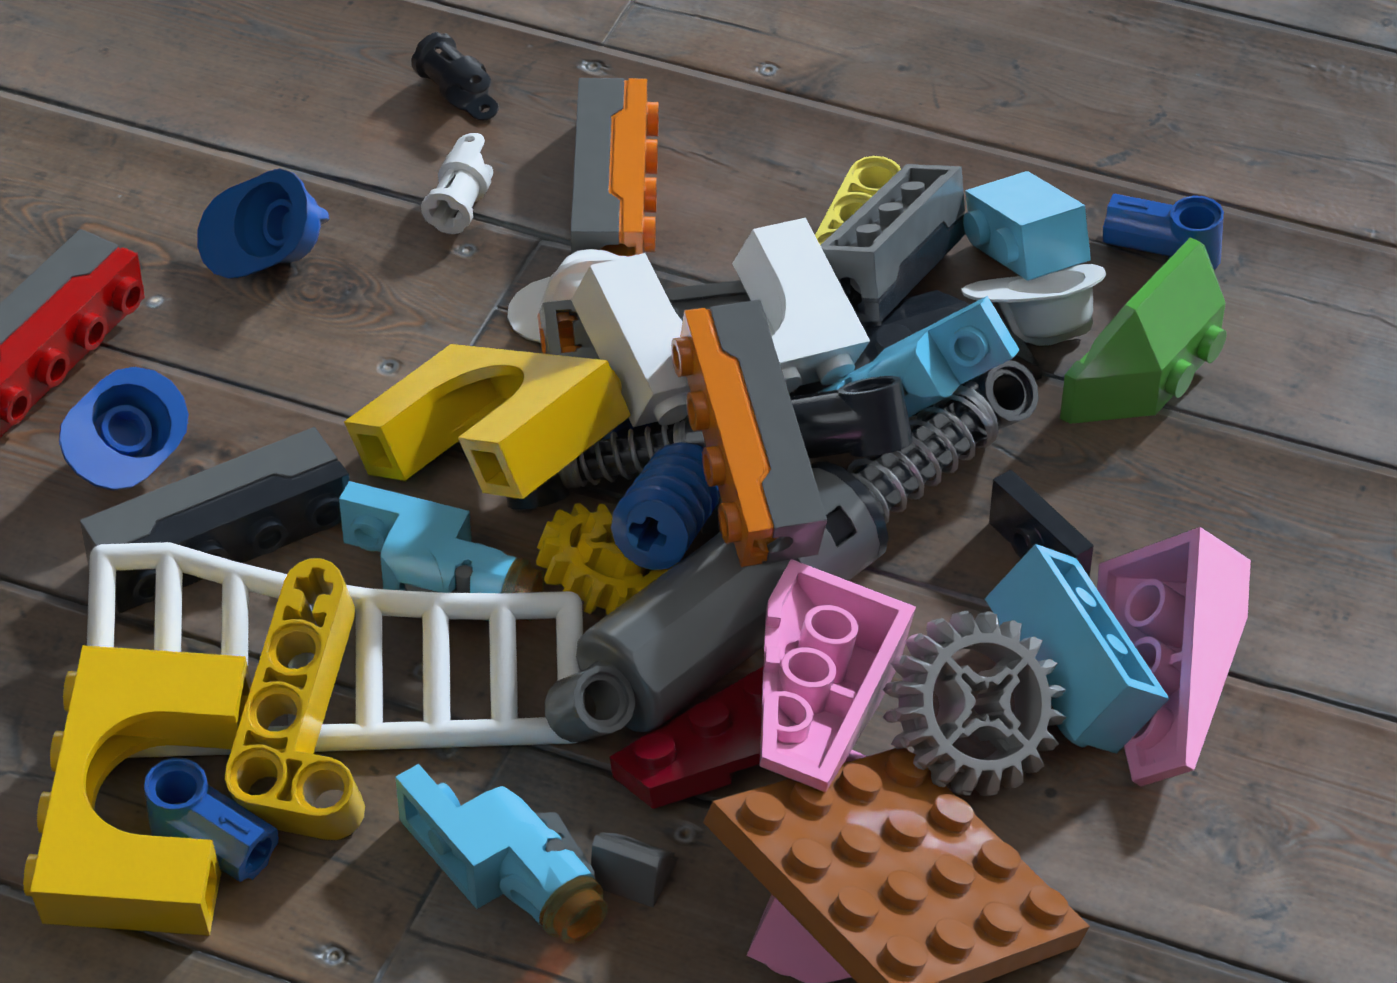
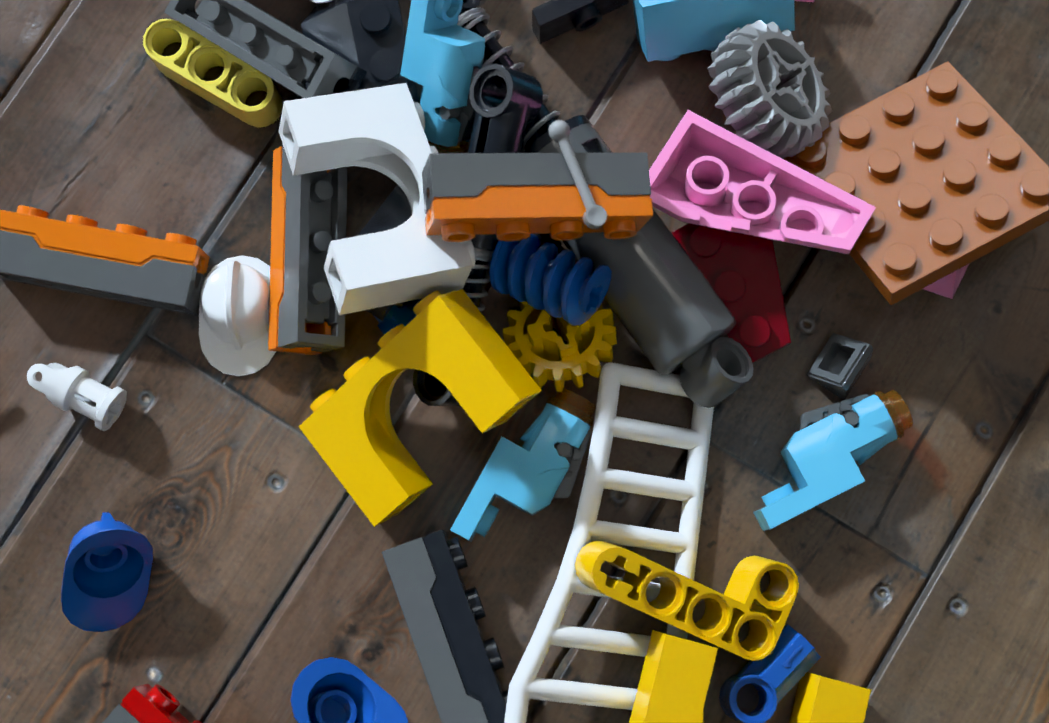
camera: 75 degrees left, 35 degrees up
(729, 463) = (595, 214): none -> light grey hinge

